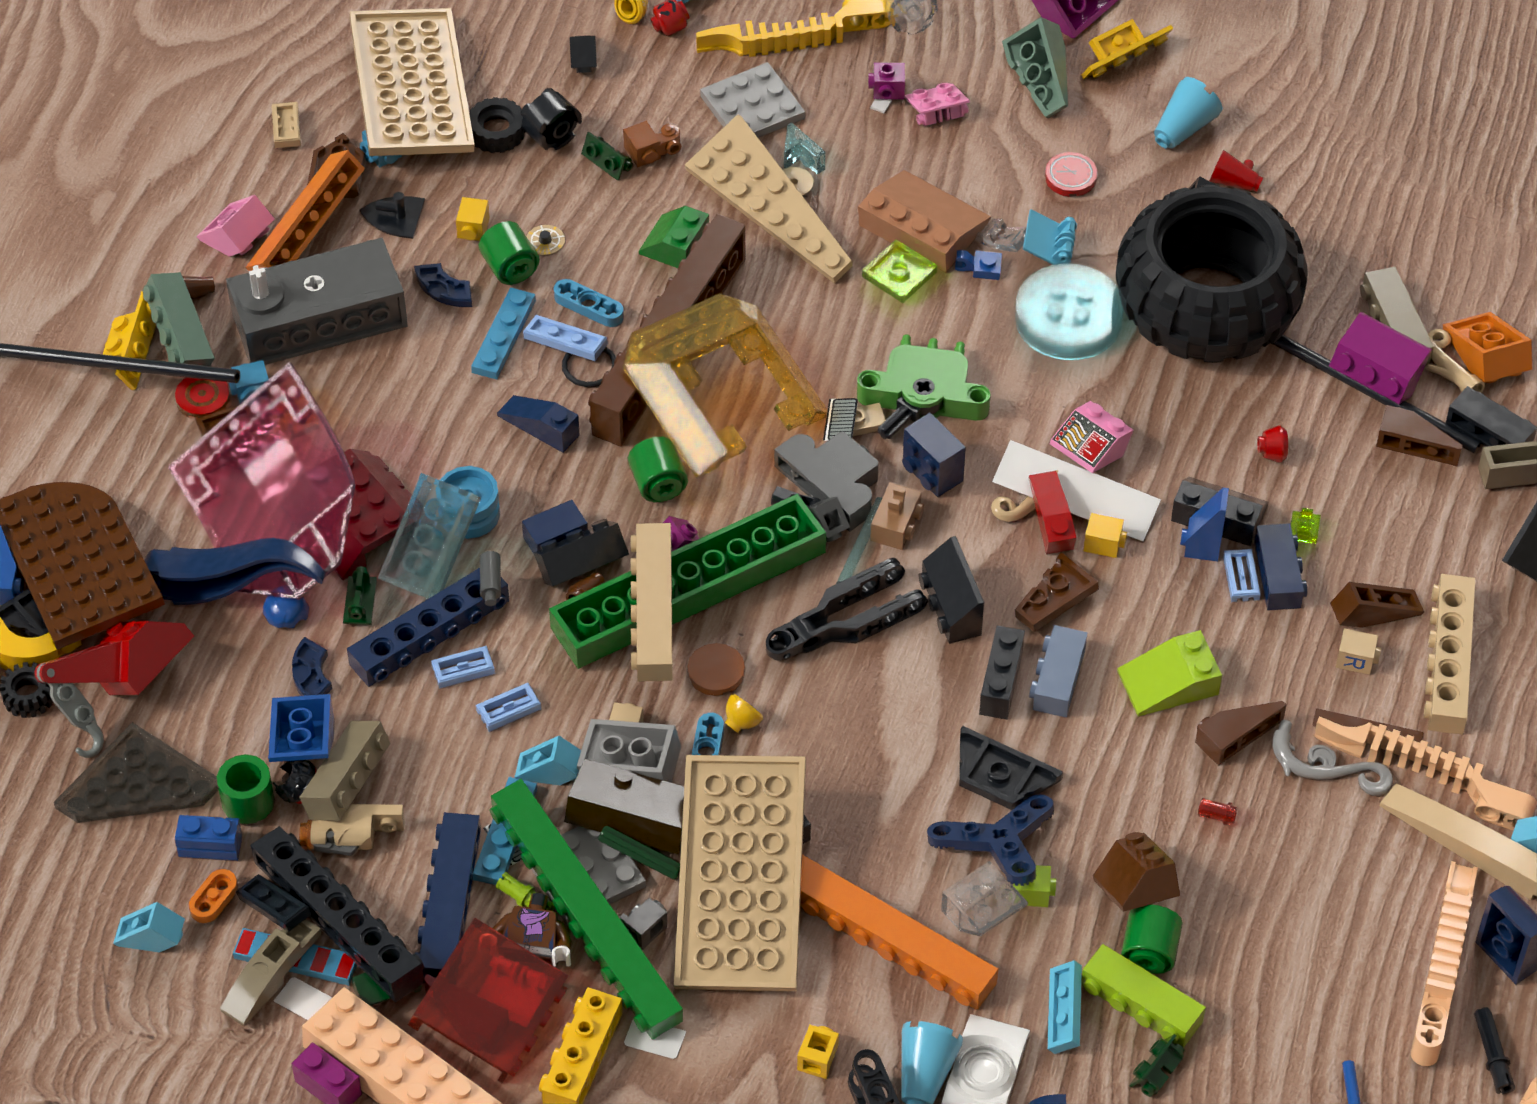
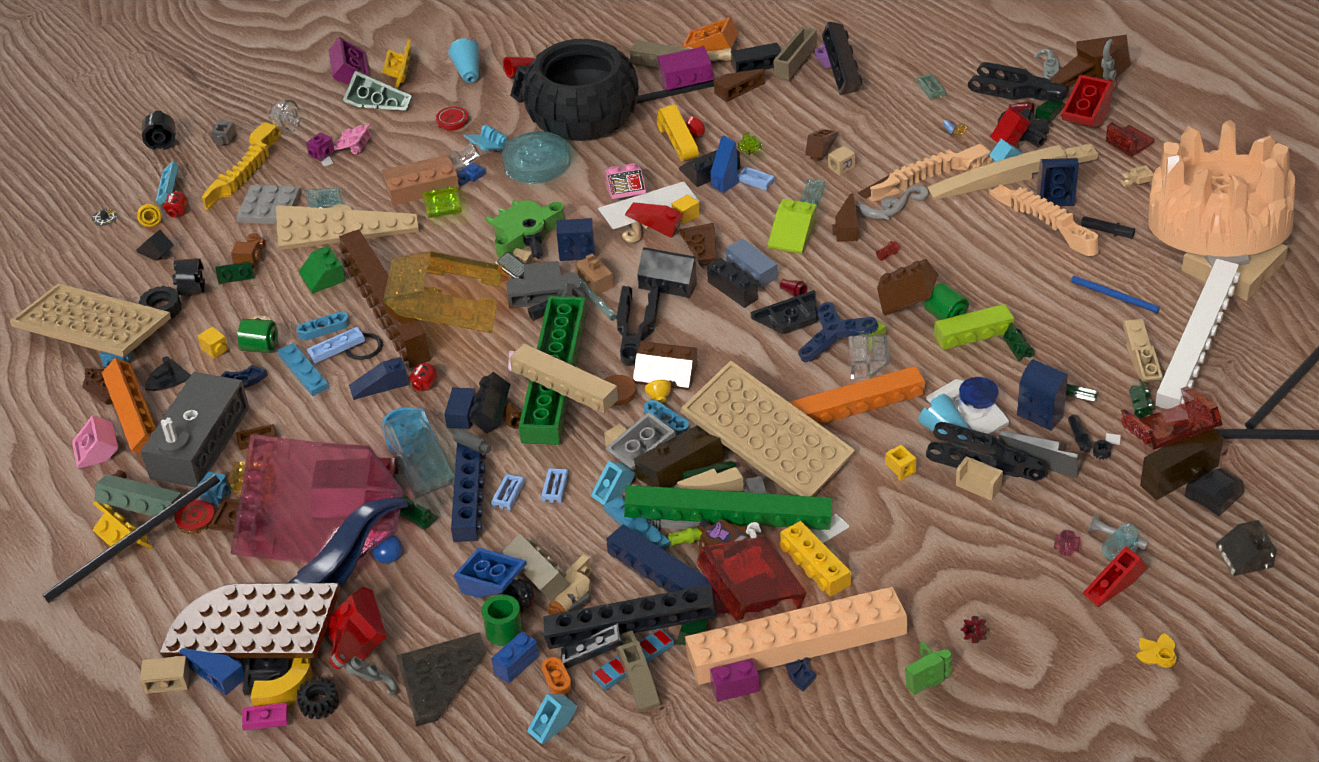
camera: 50 degrees left, 10 degrees down
(286, 125) = (49, 389): tan plate -> none
(301, 998) = (667, 670): white sticker -> none
(307, 669) = (439, 560): dark blue tile -> none
(361, 369) = (243, 437): none -> reddish brown tile
(576, 459) = (423, 377): none -> red head
(610, 868) = (728, 480): none -> tan slope
(657, 469) = (469, 345): green piece -> none
(791, 694) = (665, 362): none -> slope
(1006, 1069) = (978, 392): none -> clear blue tile
(1053, 747) = (793, 287): none -> dark red cone
(1064, 1007) = (955, 357): medium azure plate -> none
(1255, 410) = (671, 122): none -> yellow beam
(1270, 661) = (811, 199): none -> clear light blue tile
(1279, 566) = (767, 161): dark blue brick -> none
(1450, 654) = (874, 132): tan brick -> none

